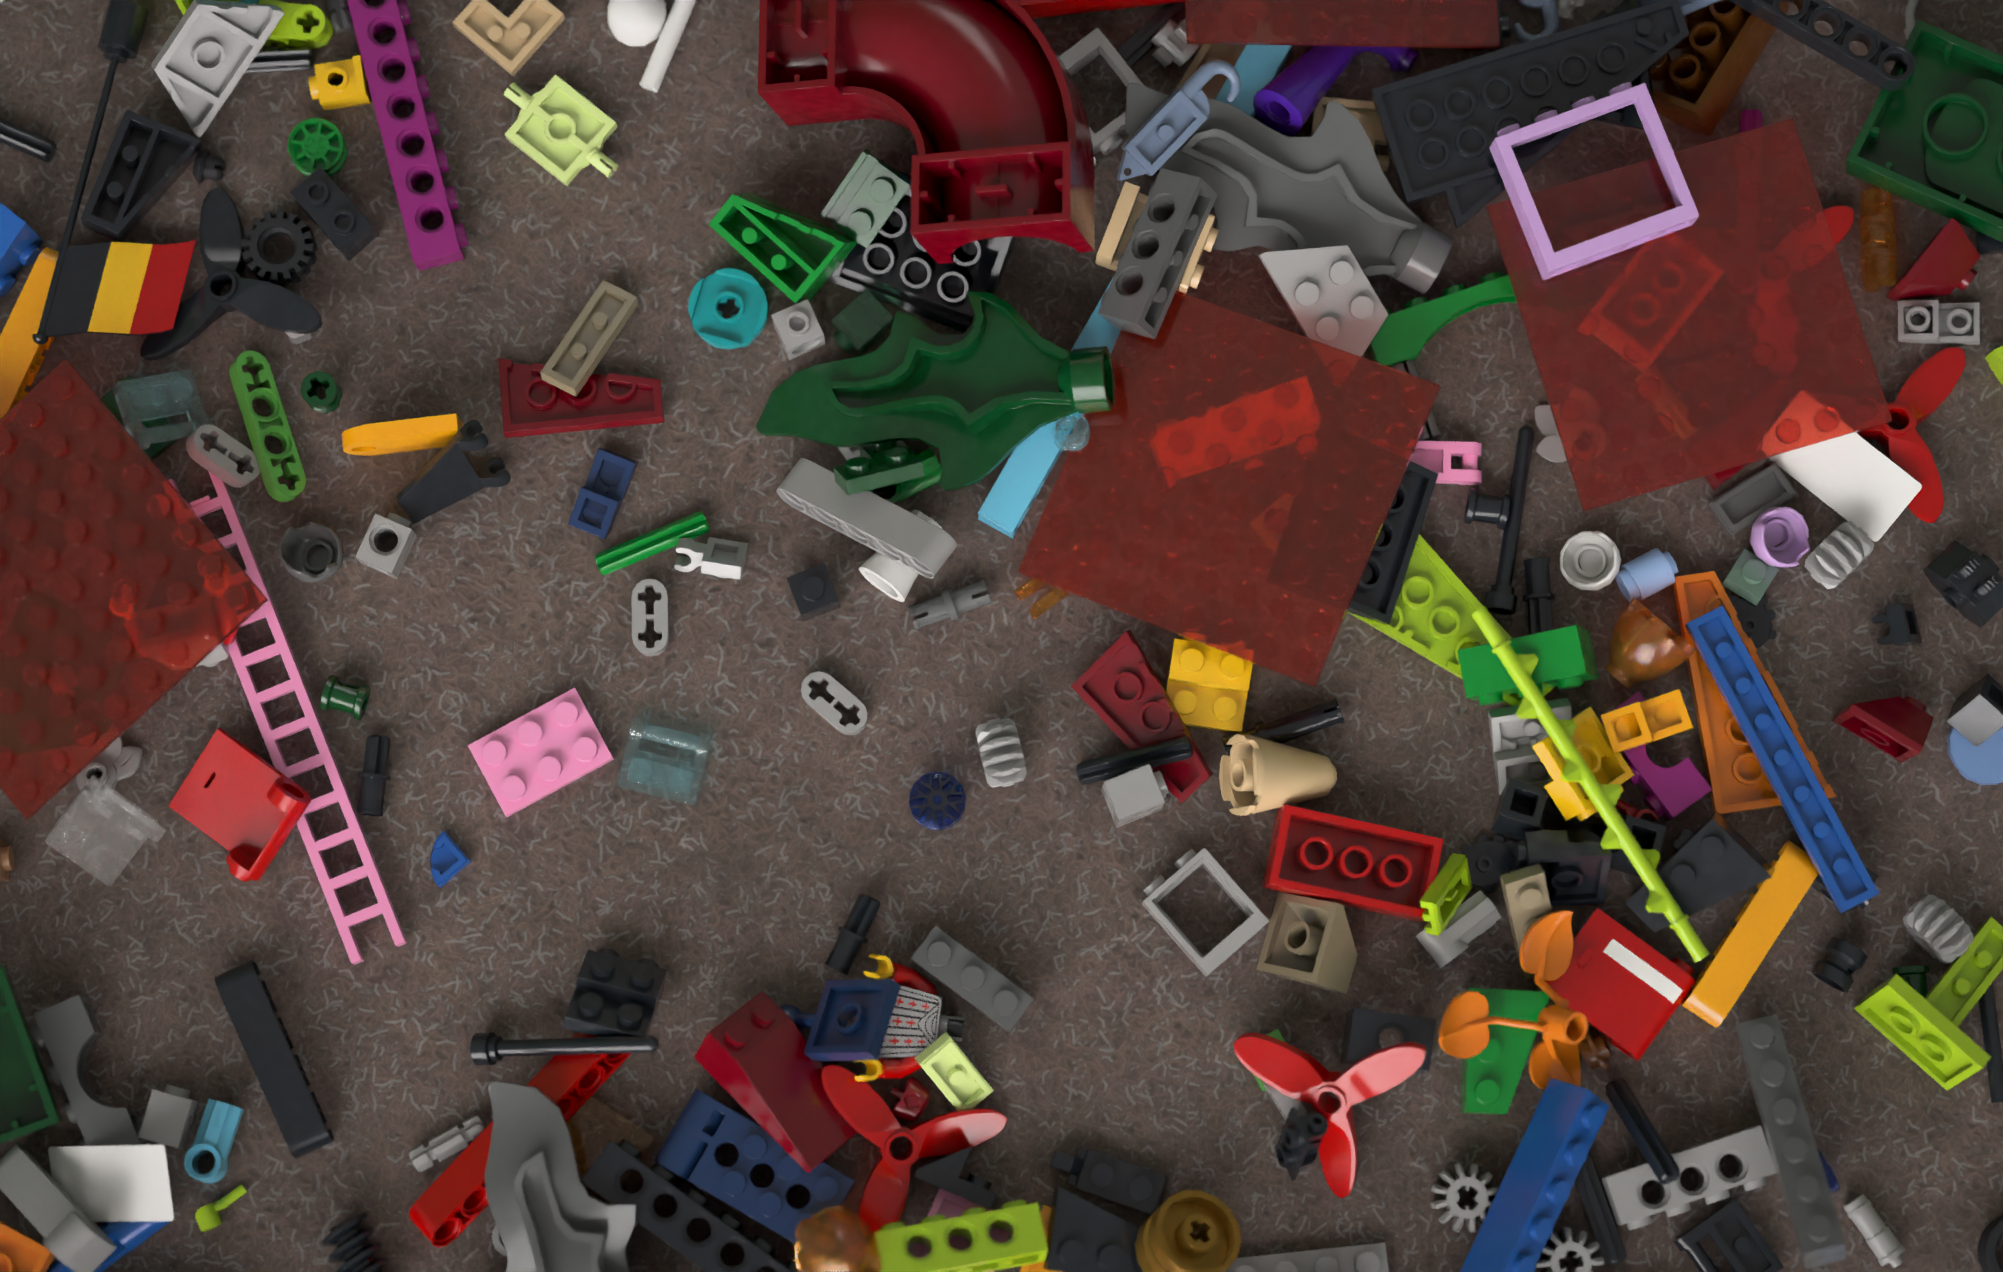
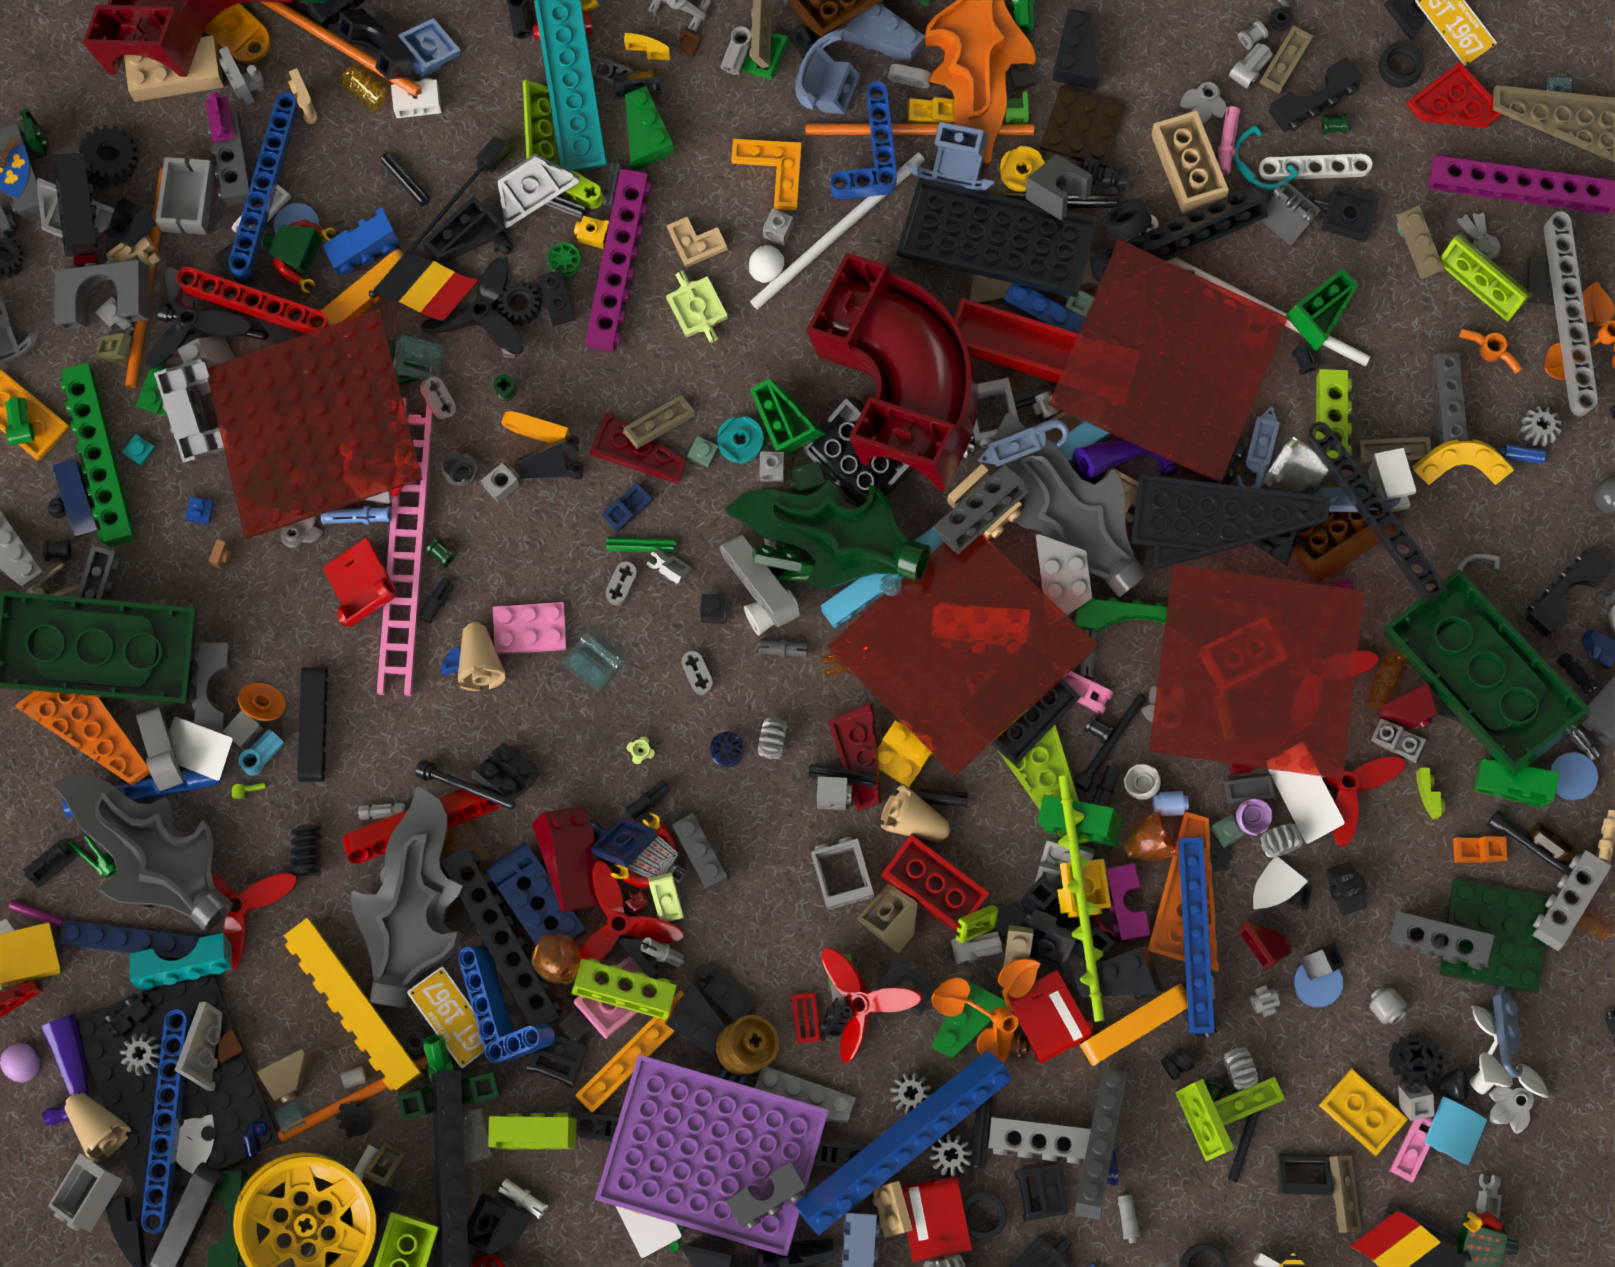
camera: 30 degrees right, 5 degrees down
(102, 831) = (281, 564): clear bracket -> none
(176, 1061) = (261, 701): none -> orange dish
(198, 693) = (366, 514): none -> medium blue pin
(273, 425) = (472, 394): bright green beam -> none
(486, 838) = (478, 660): none -> tan cone
(678, 354) = (702, 452): none -> sand green plate
(804, 852) = (643, 743): none -> yellowish green plate
(866, 198) = (838, 412): plate -> none
(989, 1161) = (662, 952): none -> light grey axle
(1271, 1186) = (808, 1039): none -> red tile
(1605, 245) = (1229, 612): lavender window -> none
(1642, 1131) = (1024, 1102): black axle -> none
(1647, 721) = (1131, 880): light orange slope -> none
(1861, 625) = (1276, 884): none -> white sticker
(1925, 809) = (1265, 1001): none -> light grey gear

